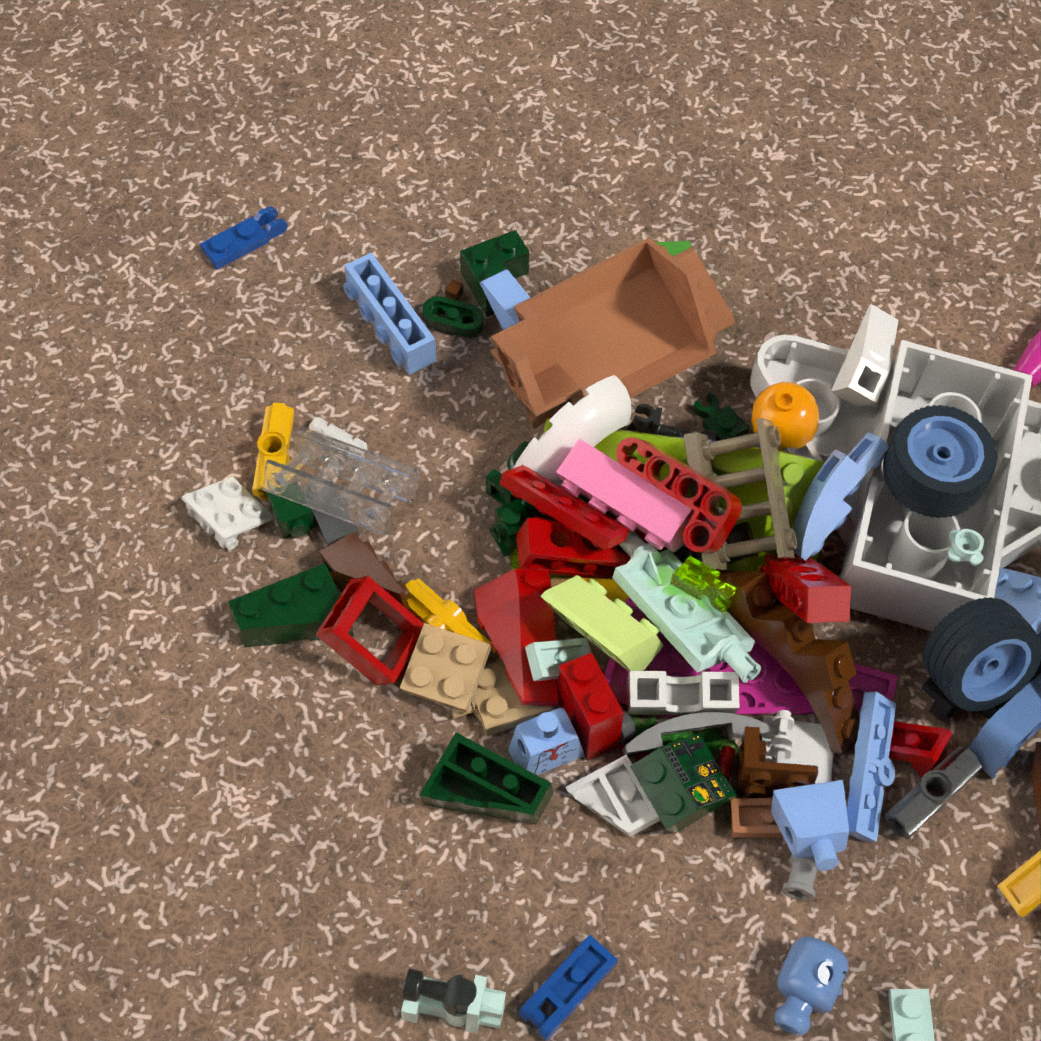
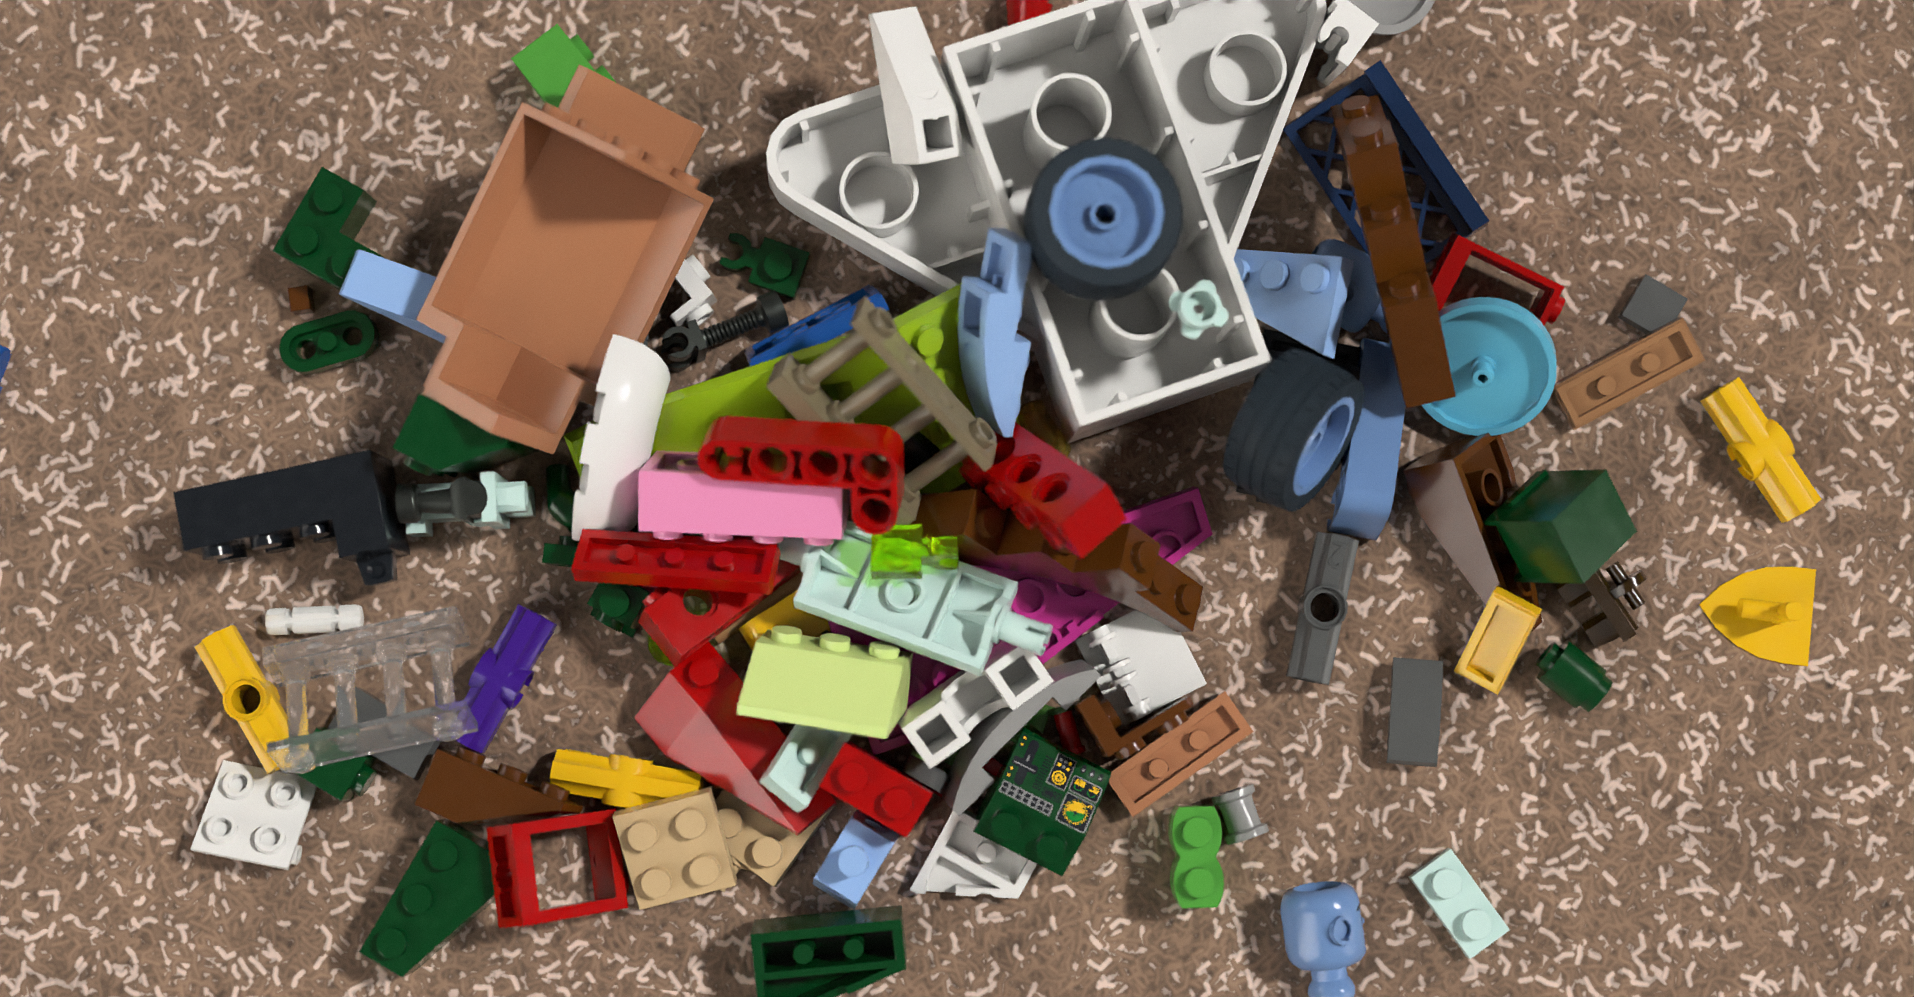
camera: 30 degrees left, 25 degrees up
(375, 370) = (320, 500): none -> black hinge
(389, 313) = (248, 401): light blue brick -> none
(418, 525) = (503, 673): none -> dark purple piece
(467, 425) = (474, 502): none -> hips
(490, 386) = (447, 443): none -> dark green slope
(673, 400) = (692, 279): none -> white bracket
(757, 879) = (1195, 871): none -> bright green brick
(791, 410) = (863, 250): light orange cylinder -> none
(813, 821) = (1220, 754): light blue torso -> none
(871, 766) = (1236, 628): light blue hinge -> none
(918, 745) = (1266, 566): red slope -> none
(955, 890) = (1414, 712): none -> dark grey slope

